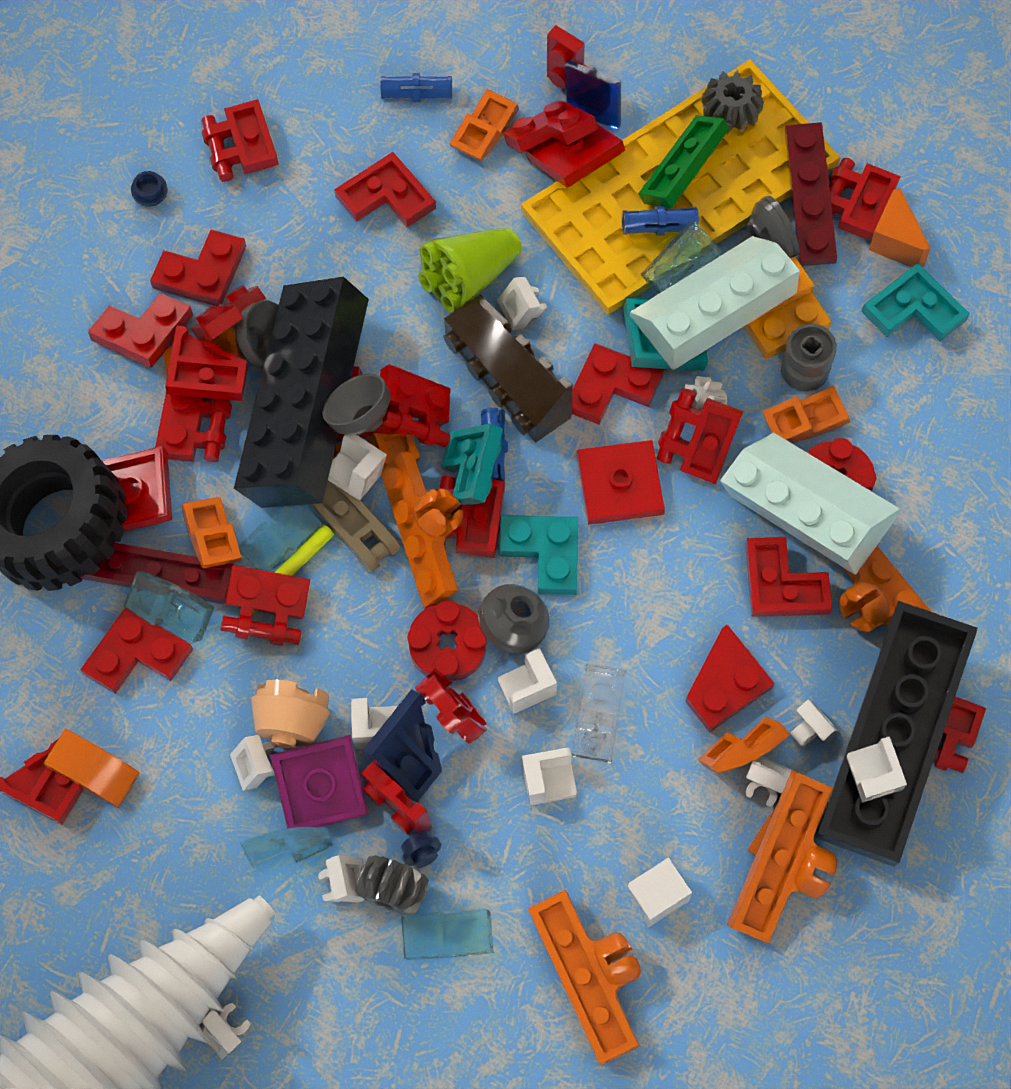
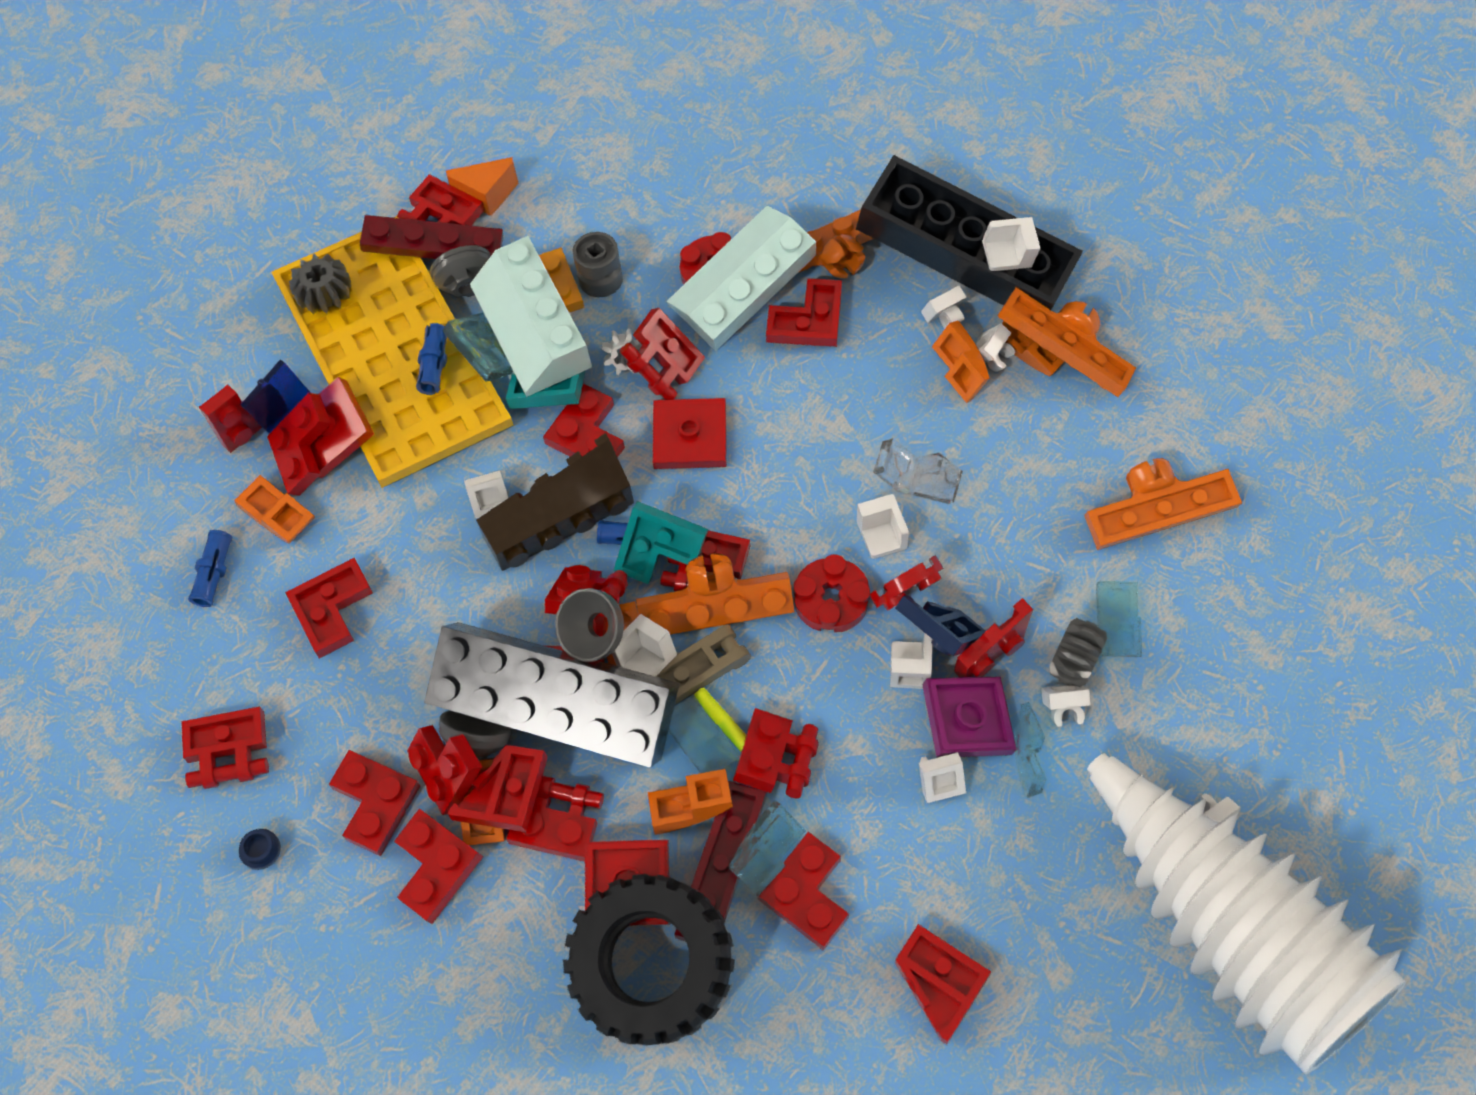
camera: 80 degrees left, 5 degrees down
(91, 768) = (935, 936): orange slope -> none
(288, 713) = (902, 731): light nougat cone -> none
(420, 849) = (1040, 632): dark blue plate -> none
(465, 264) = (439, 535): lime cone -> none
(507, 629) = (818, 538): dark grey piece -> none
(549, 776) = (975, 521): white panel -> none
(551, 541) = (749, 492): teal plate -> none
(659, 891) = (1091, 436): white panel -> none
(683, 161) = (374, 330): green plate -> none
(727, 681) = (896, 372): red wing -> none
(807, 417) = (650, 278): orange slope -> none
(915, 296) = (552, 183): teal plate -> none

